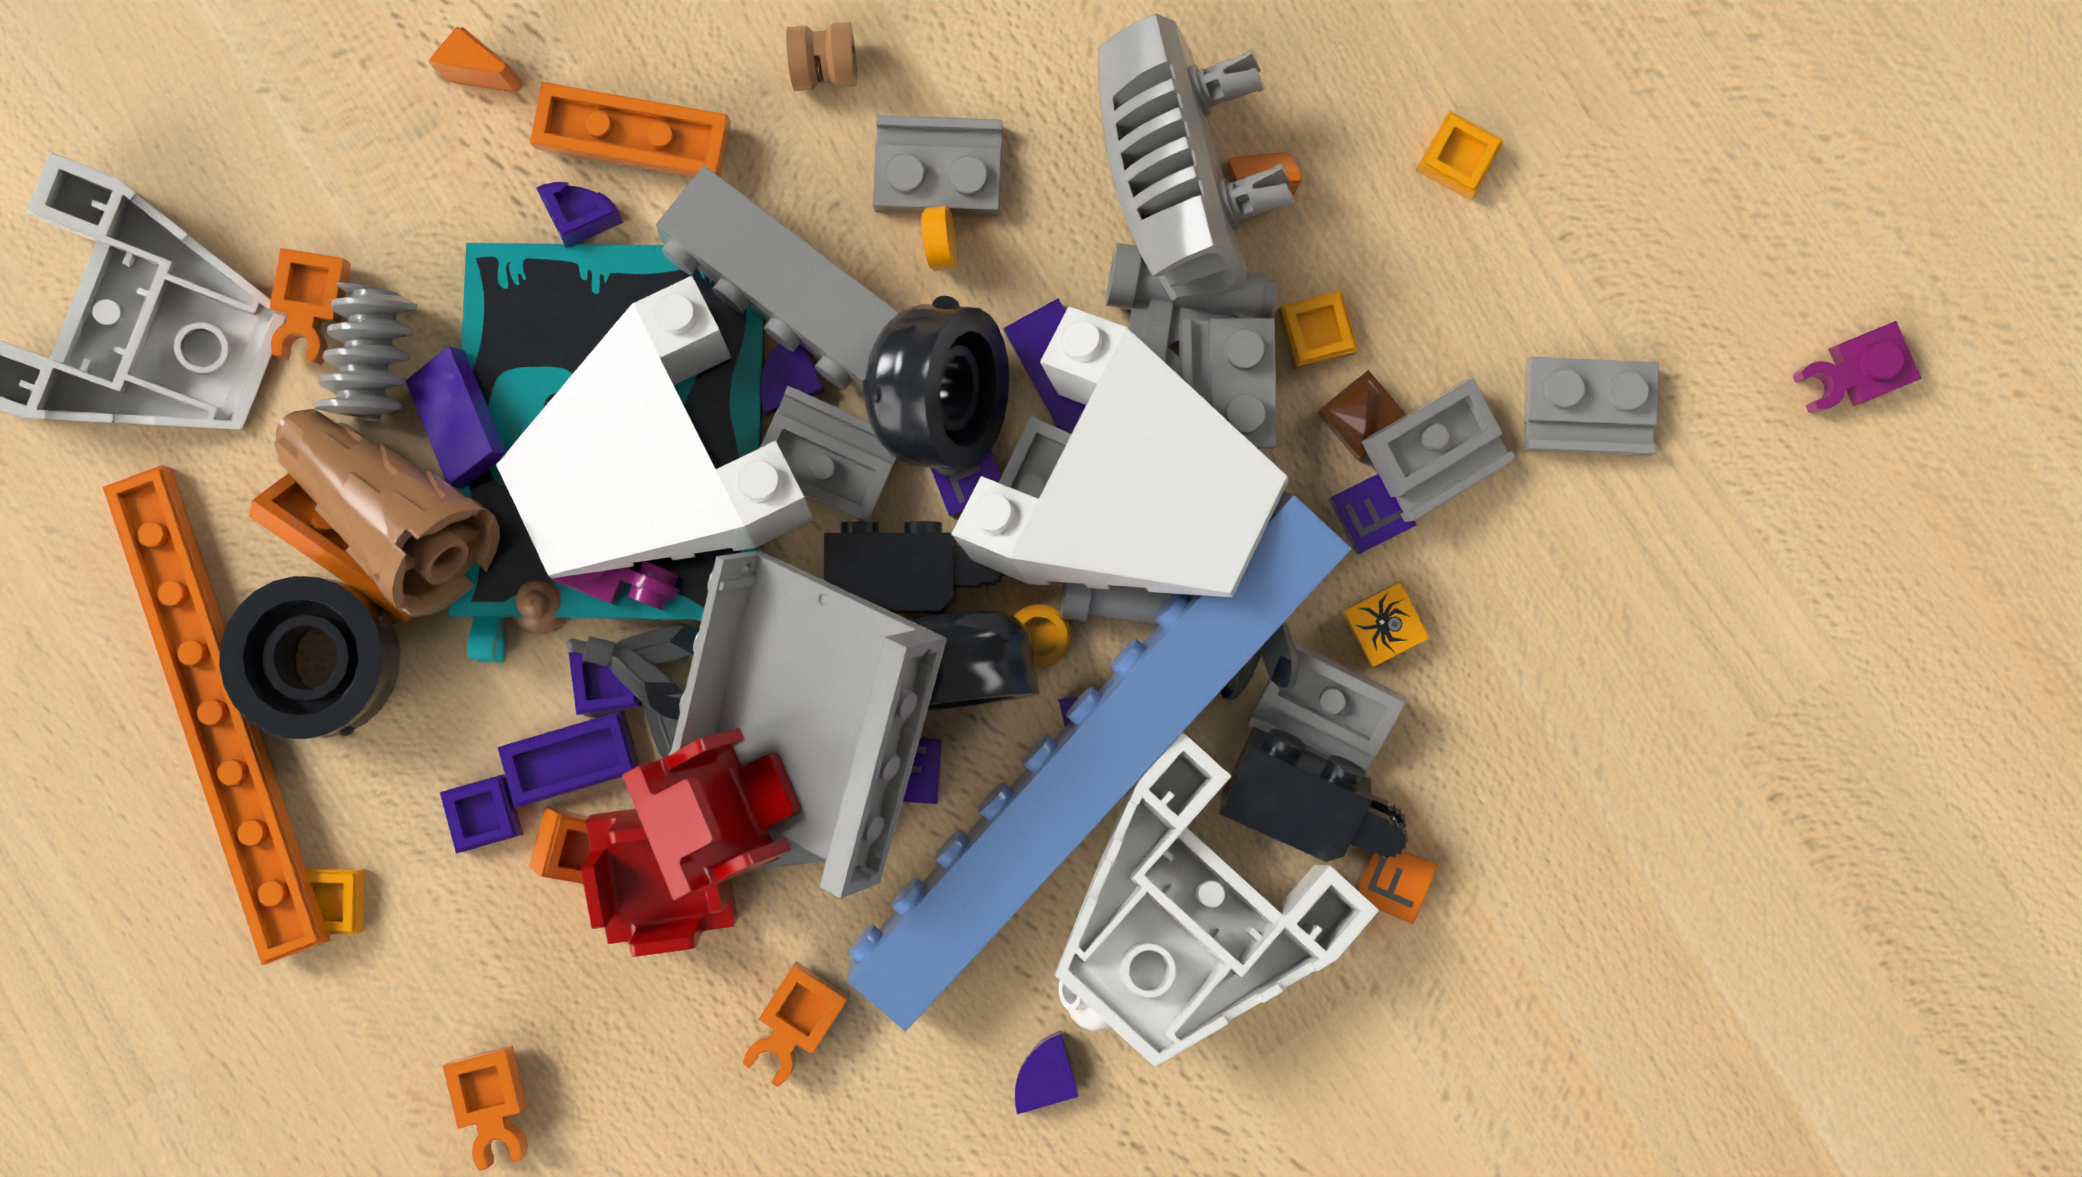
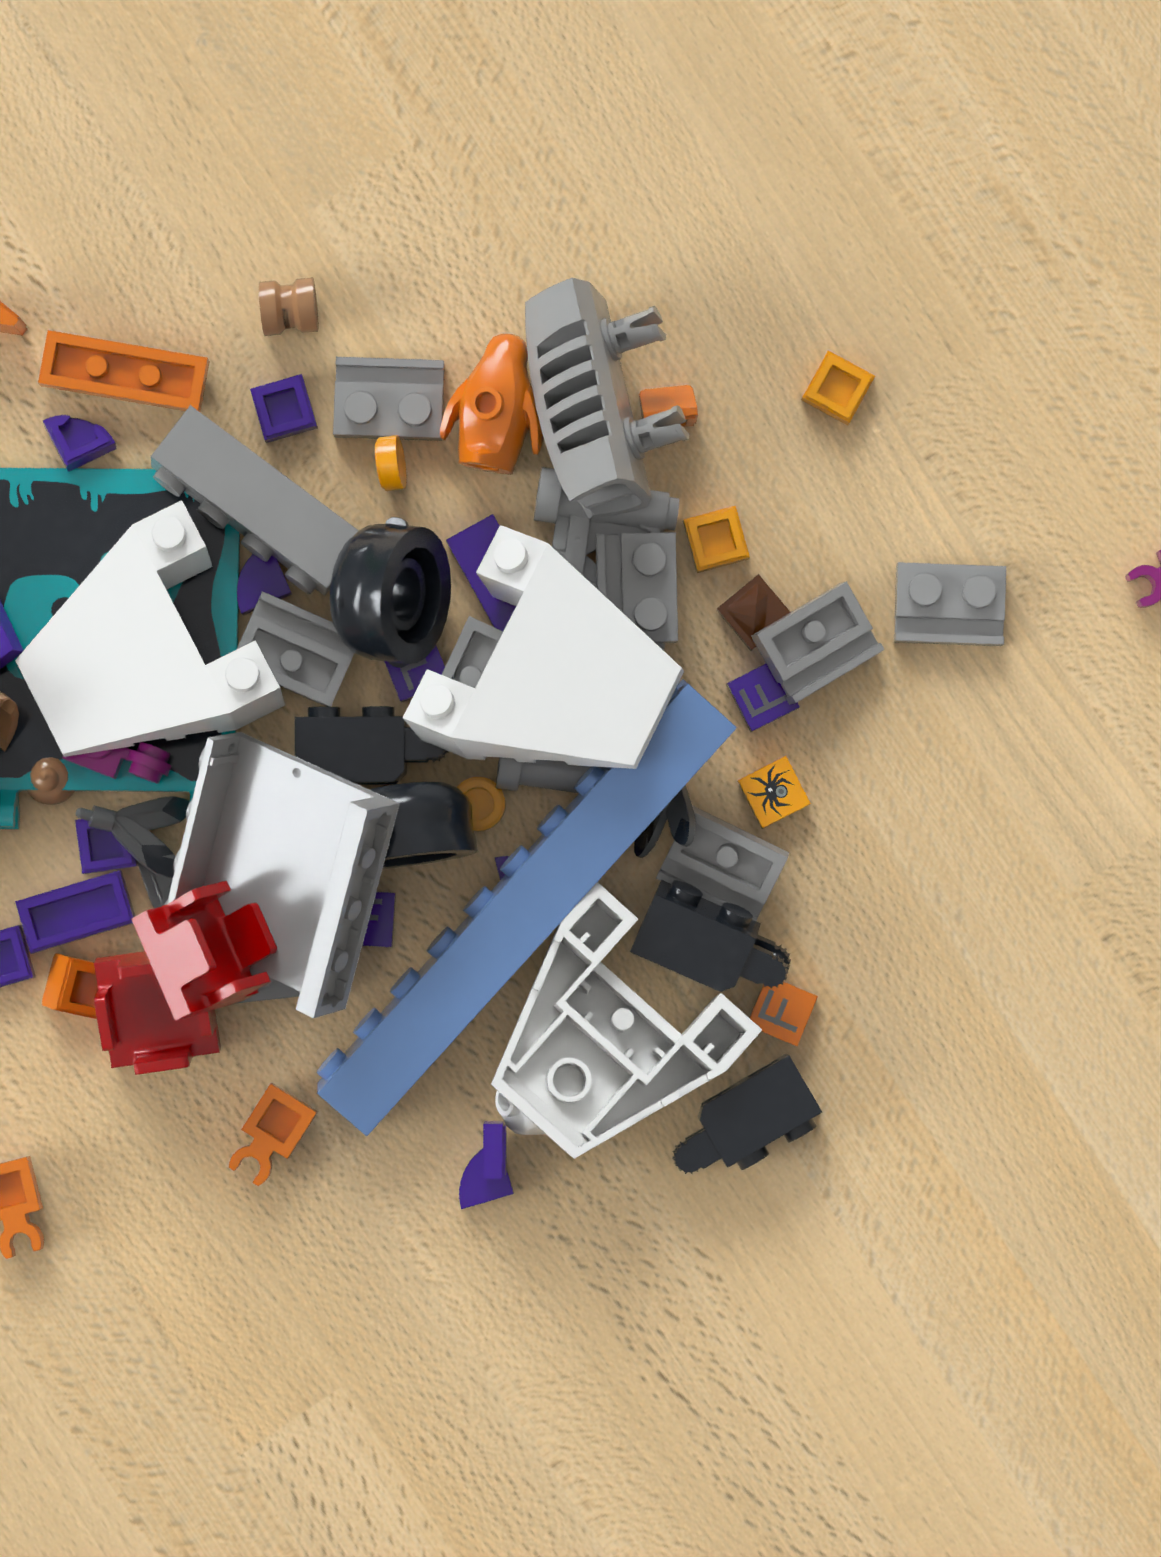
camera: 10 degrees left, 0 degrees up
(816, 176) = (283, 408): none -> dark purple tile
(1057, 1049) = (494, 1149): none -> dark purple tile
(1062, 175) = (495, 409): none -> orange animal
(1358, 1010) = (749, 1117): none -> black hinge

